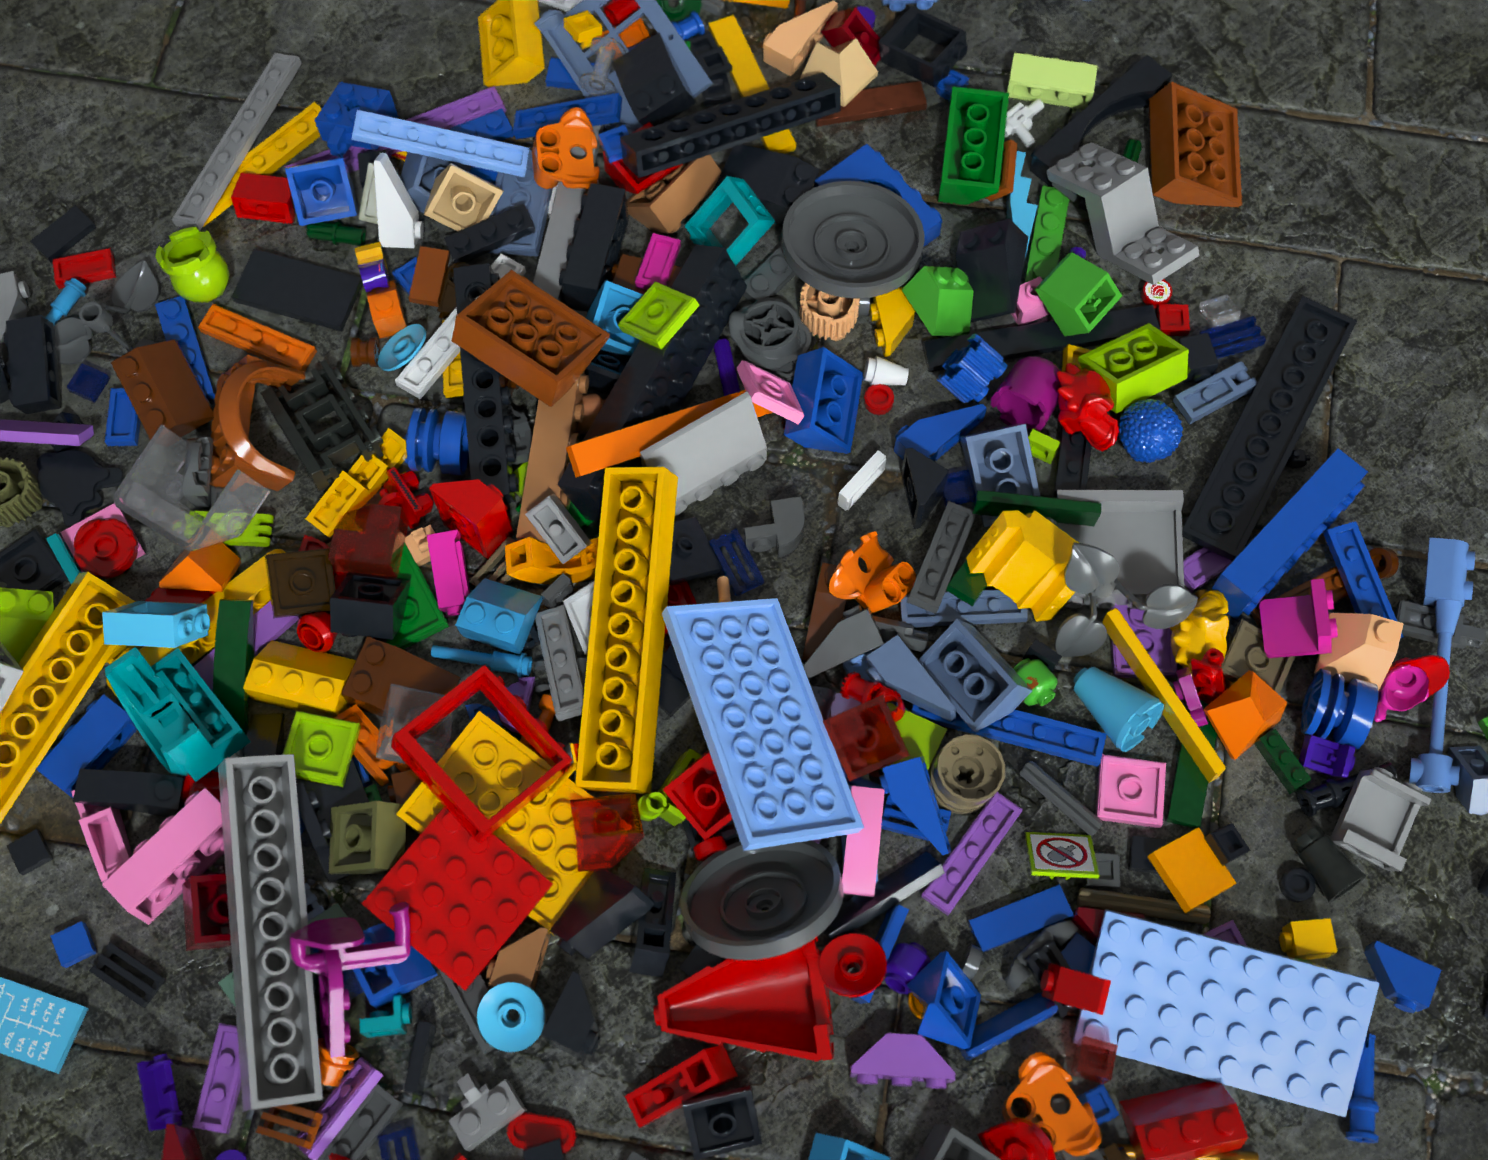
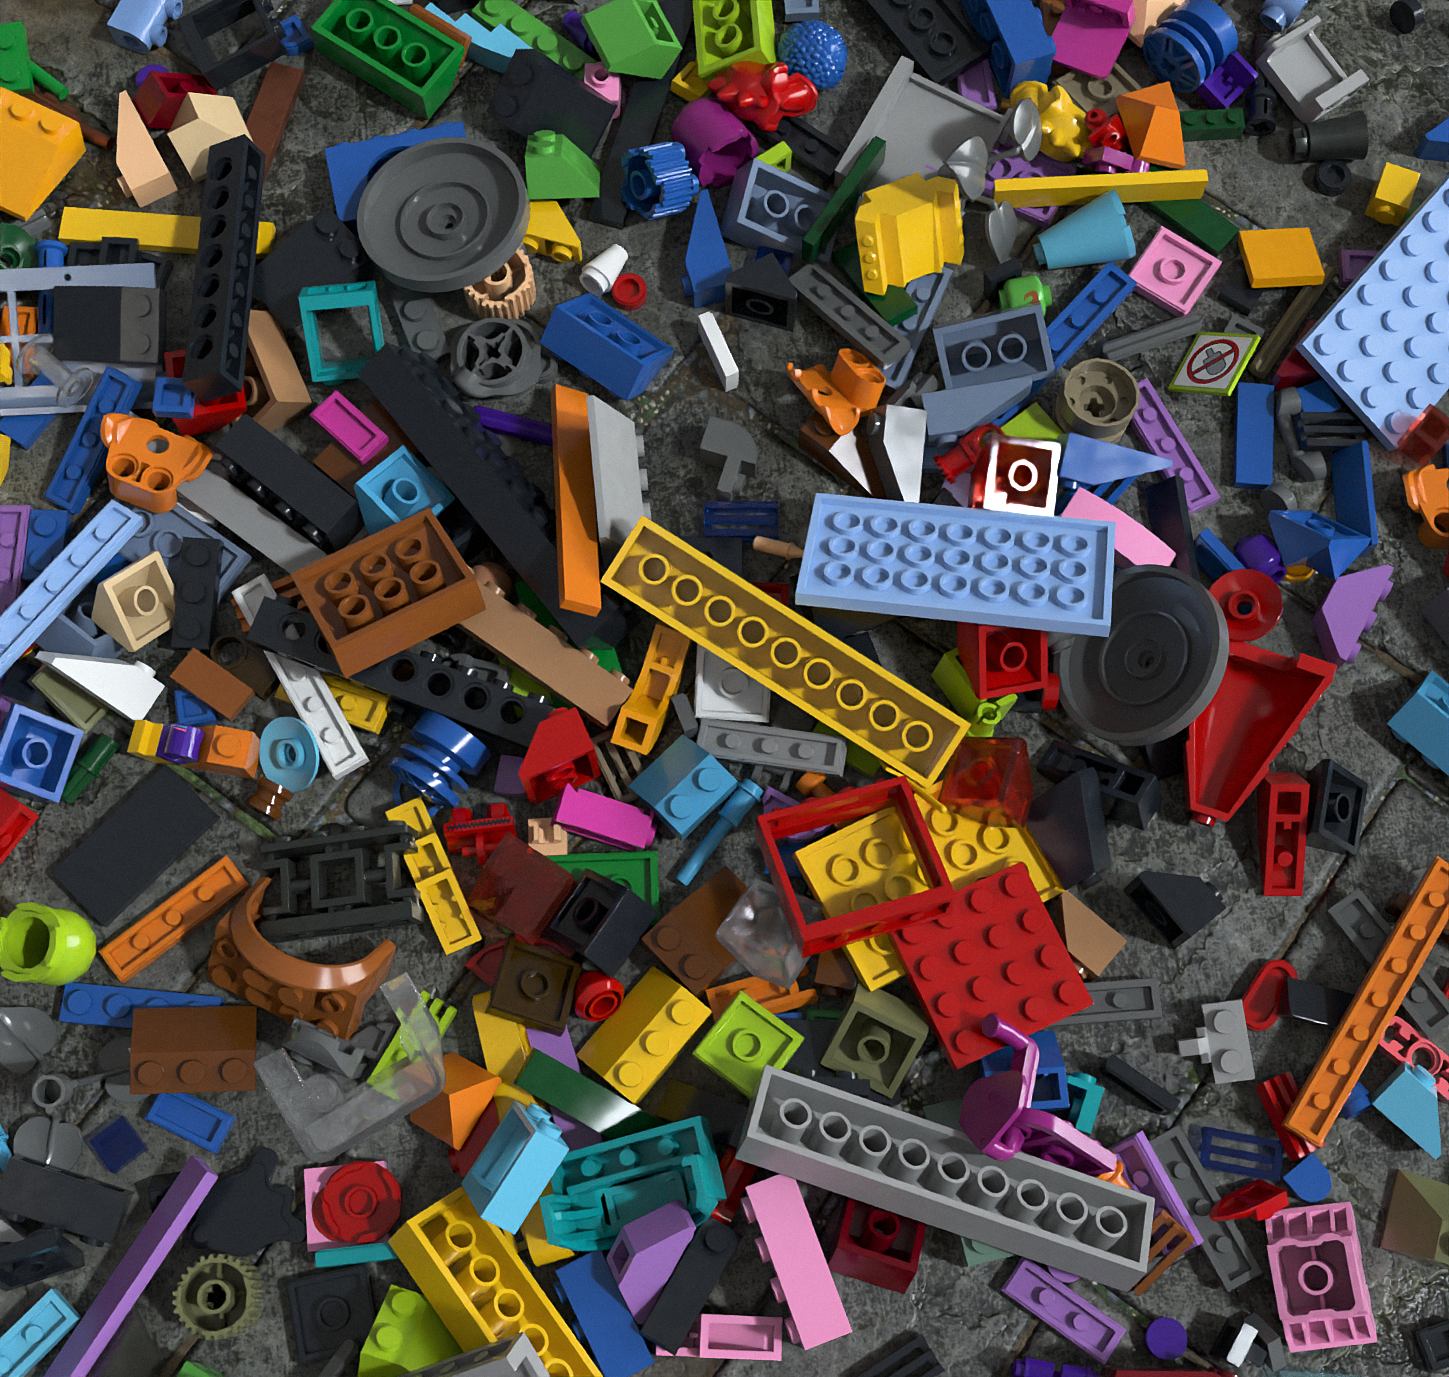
camera: 65 degrees left, 5 degrees up
(130, 747) = (648, 1255): none -> medium lavender slope
(499, 1028) = (1159, 967): medium azure dish -> none
(558, 528) = (624, 675): light grey slope -> none
(658, 315) = (430, 449): lime tile -> none
(770, 391) = (577, 382): bright pink tile -> none
(1075, 988) = (1362, 410): red slope -> none
(1227, 844) = (1267, 215): black tile -> none

